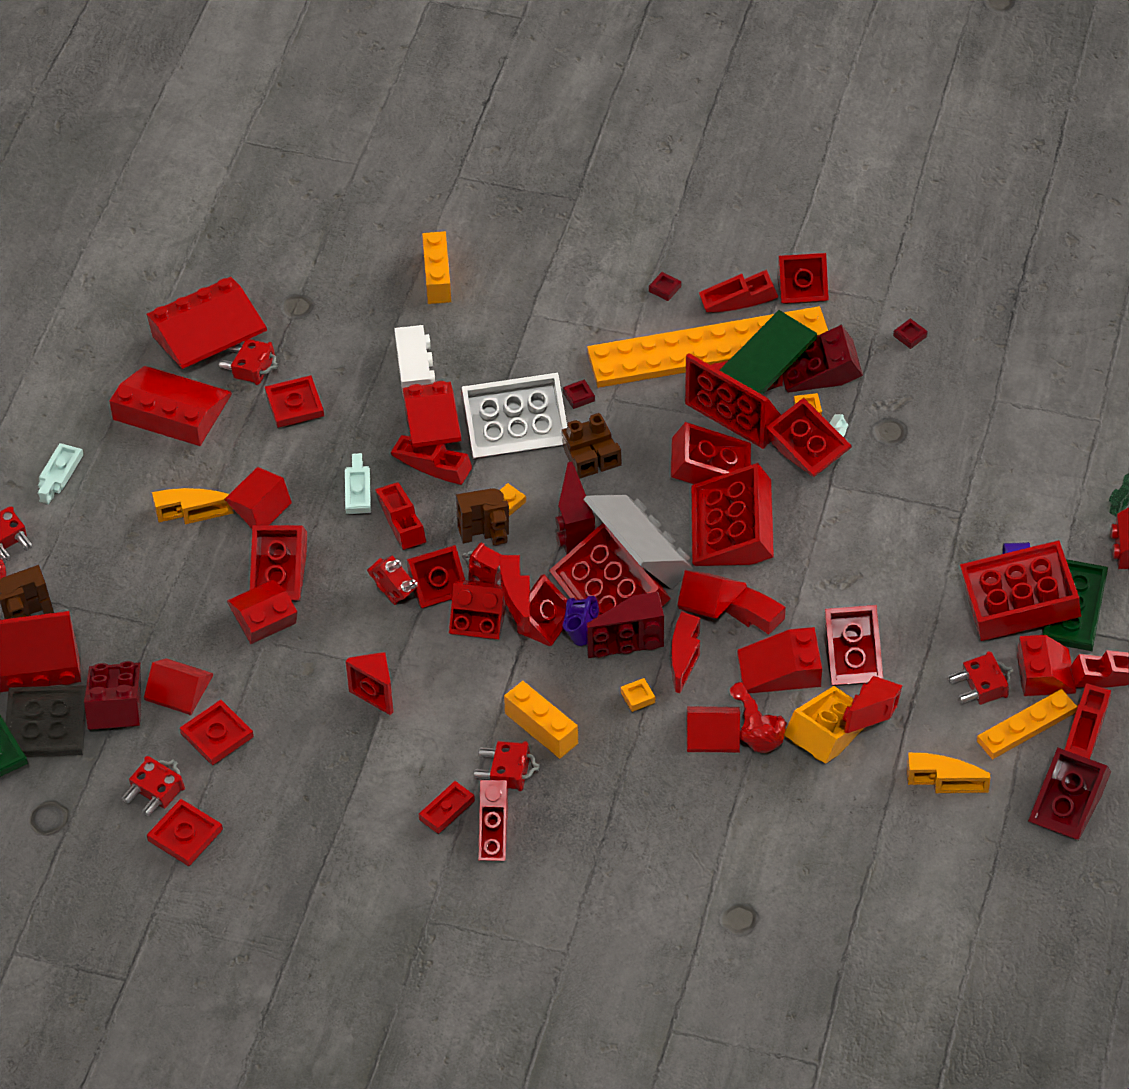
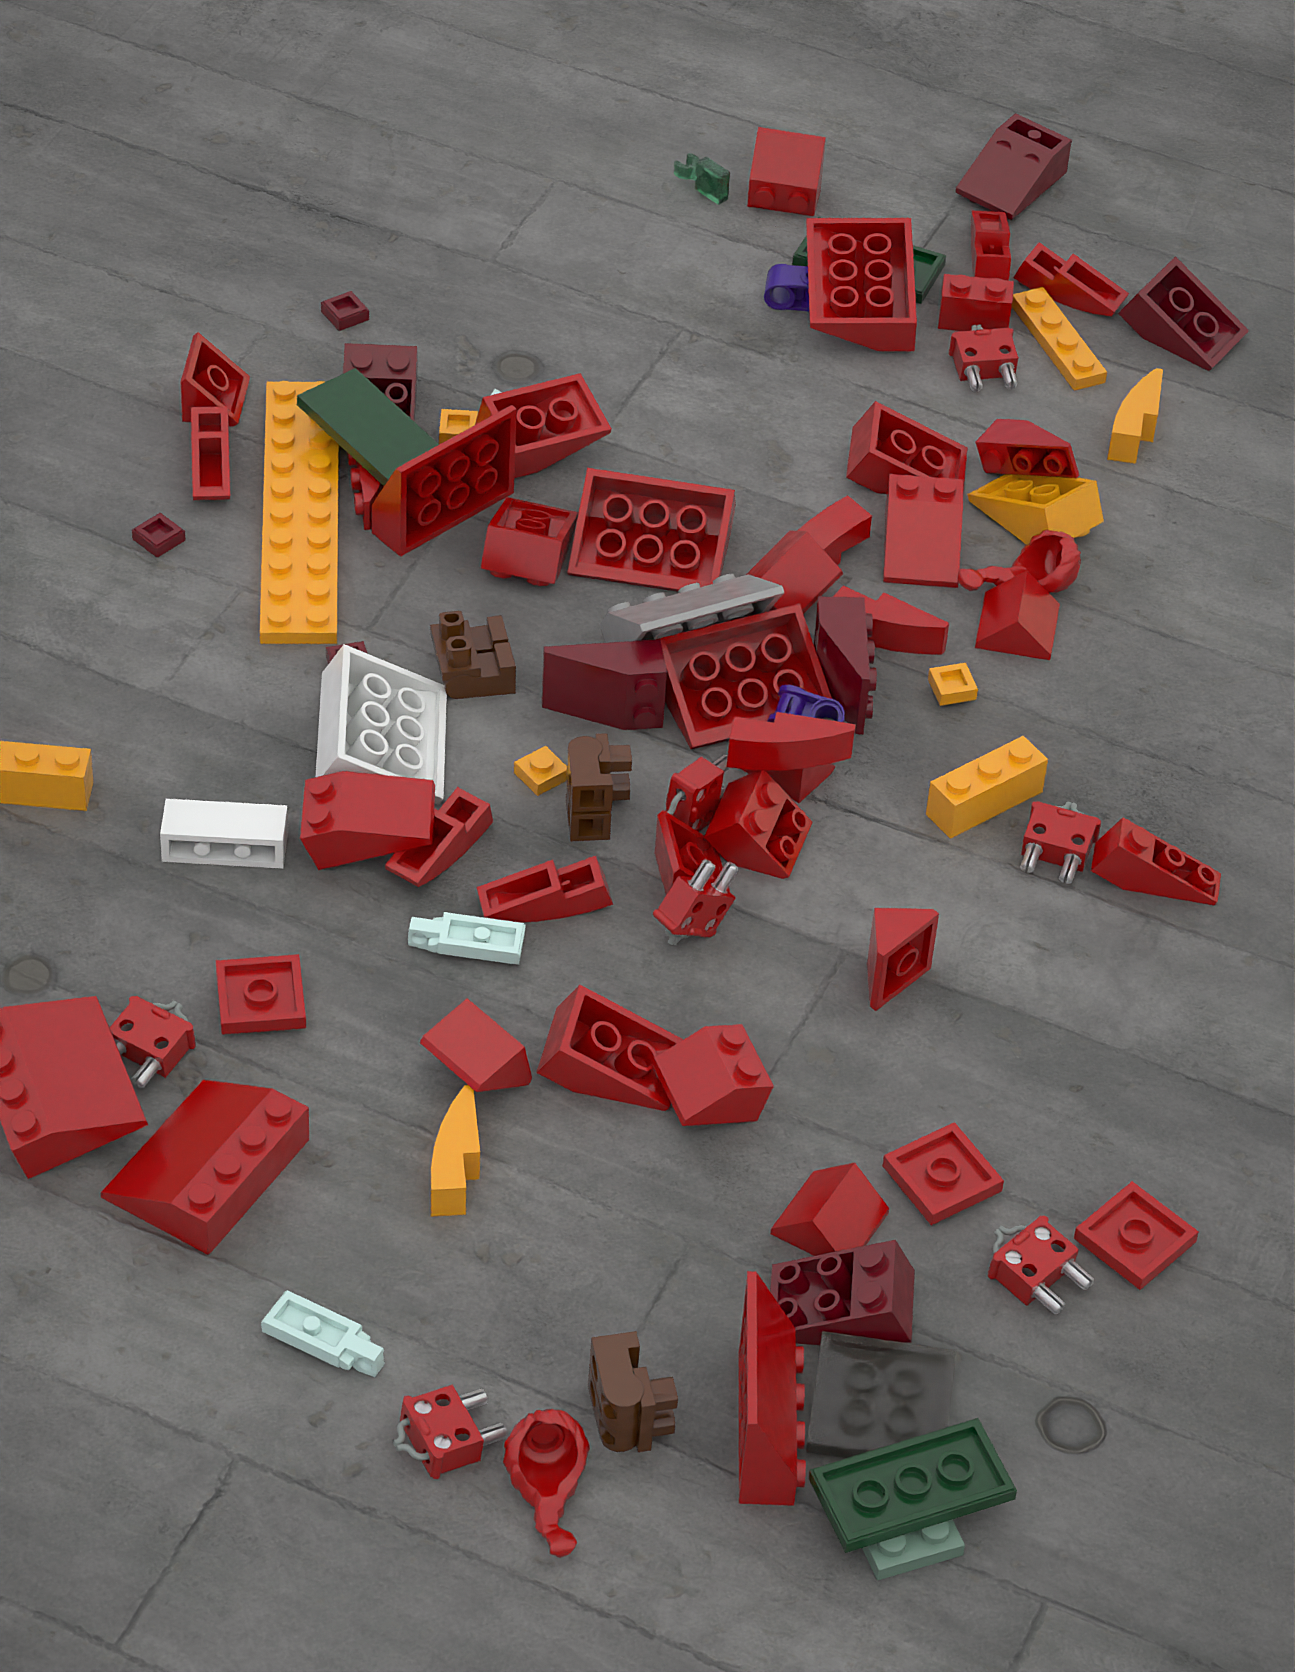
camera: 85 degrees left, 5 degrees down
(446, 807) = (1126, 917): red plate -> none

